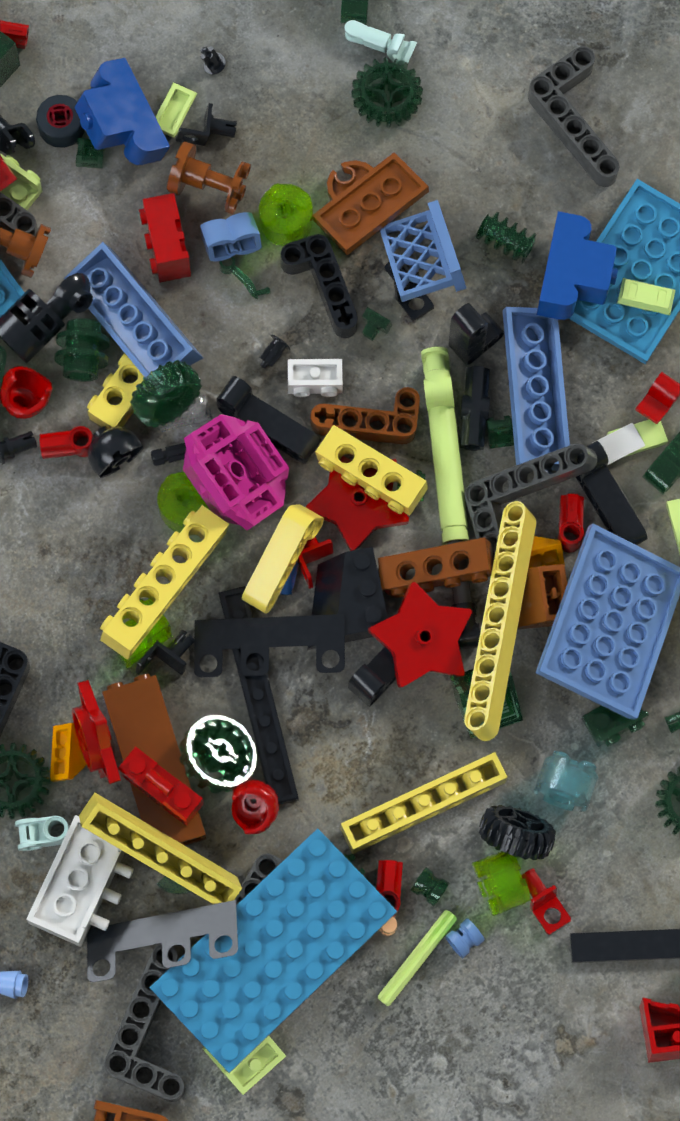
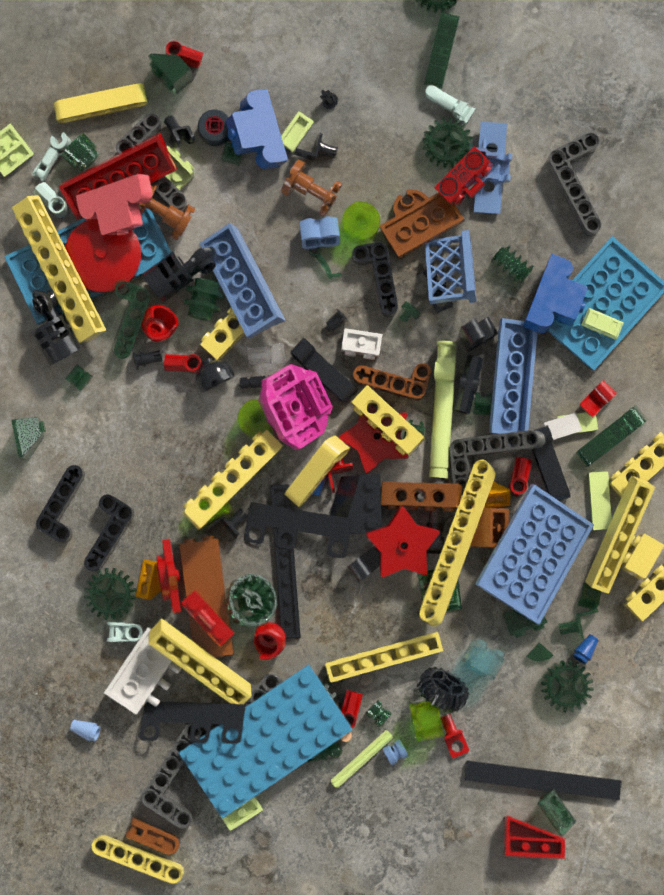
camera: 15 degrees right, 10 degrees up
(165, 238) = (274, 225): red wedge -> none
(166, 393) = (255, 343): clear green gear -> none
(375, 951) = (334, 751): none -> clear green pin
(416, 128) = (463, 175): none -> red piece
(461, 115) = (492, 145): none -> medium blue piece
(645, 764) = (539, 653): none -> clear green tile

